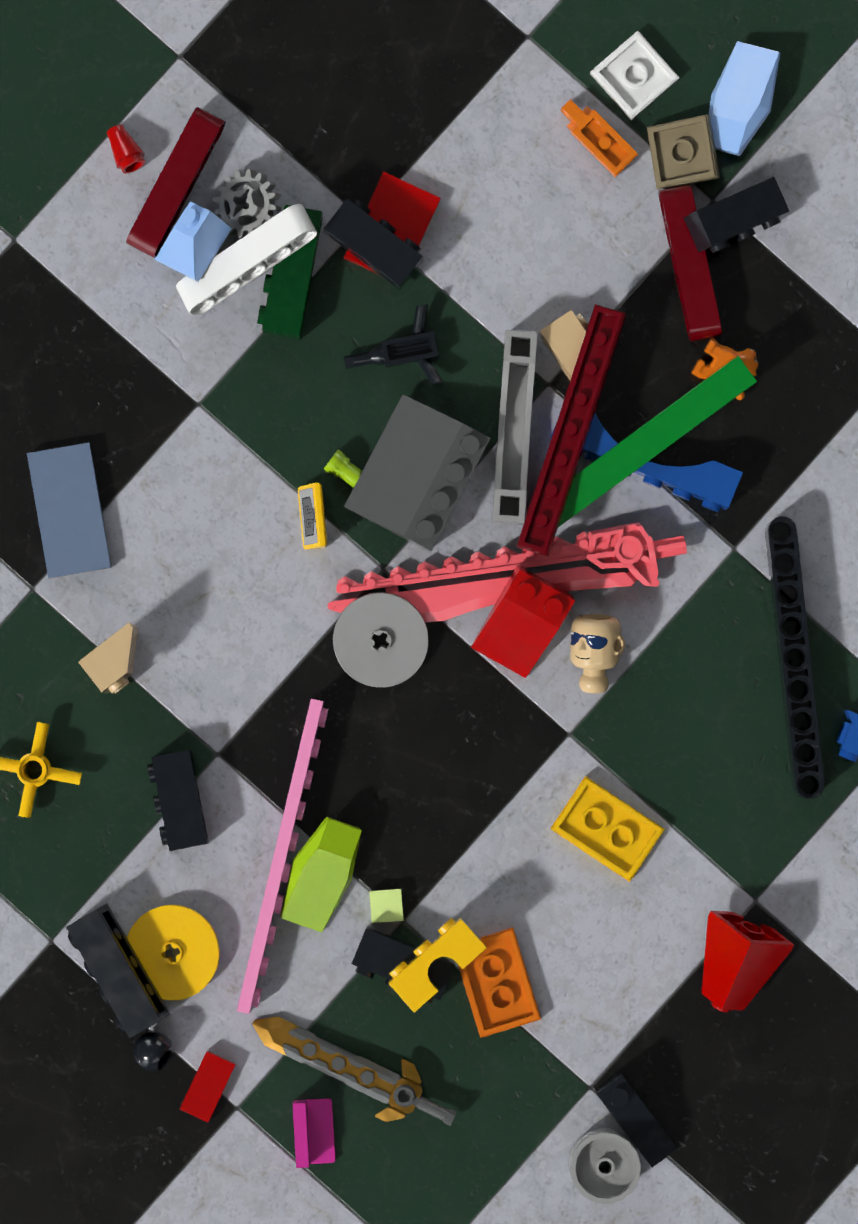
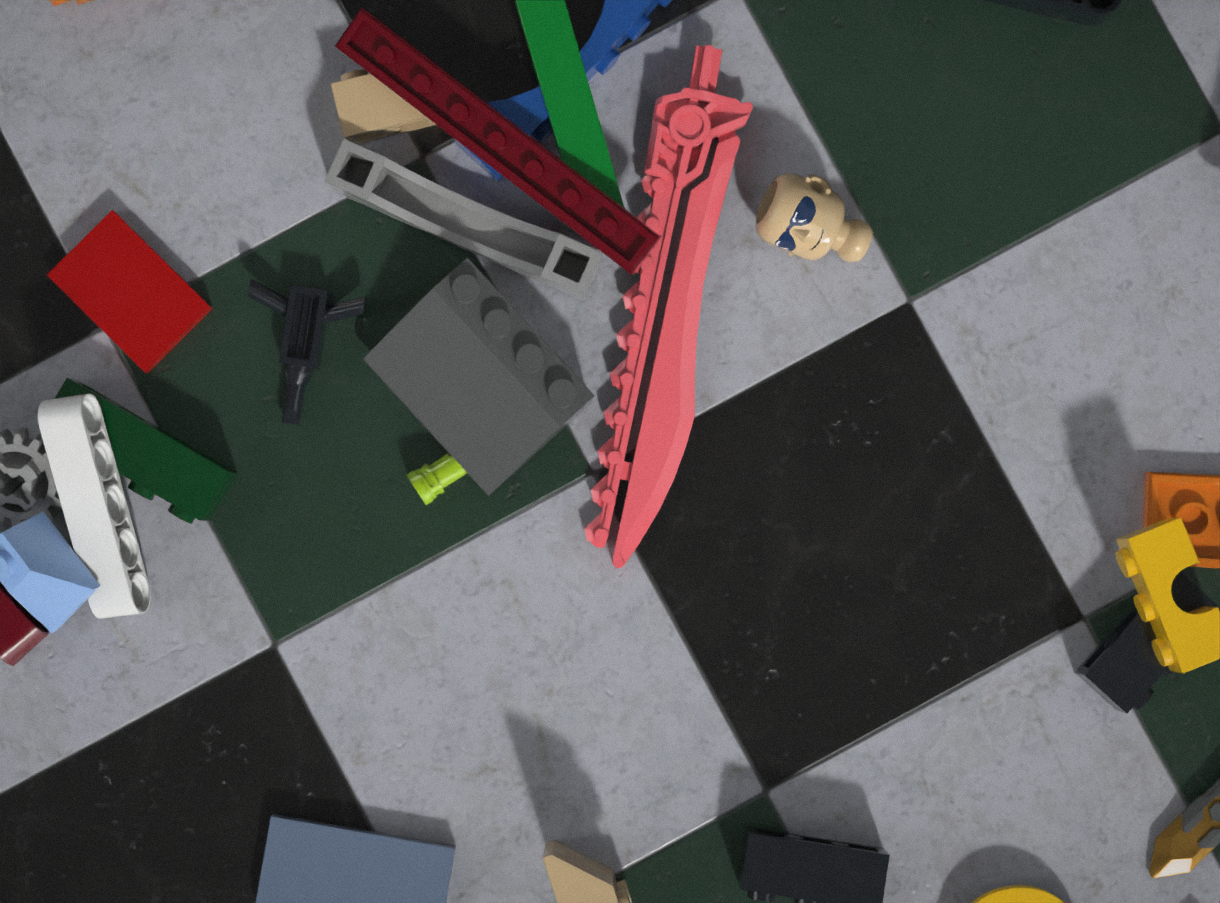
camera: 65 degrees left, 0 degrees up
(279, 869) = (957, 764): bright pink plate -> none
(312, 516) = (486, 543): slope -> none
(321, 874) = (984, 710): lime piece -> none
(374, 243) = (138, 321): black brick -> none
(374, 615) = (654, 507): light grey piece -> none
(386, 905) = (1057, 634): yellowish green tile -> none
(523, 621) = (736, 305): red slope -> none
(607, 828) = (1058, 295): yellow tile -> none

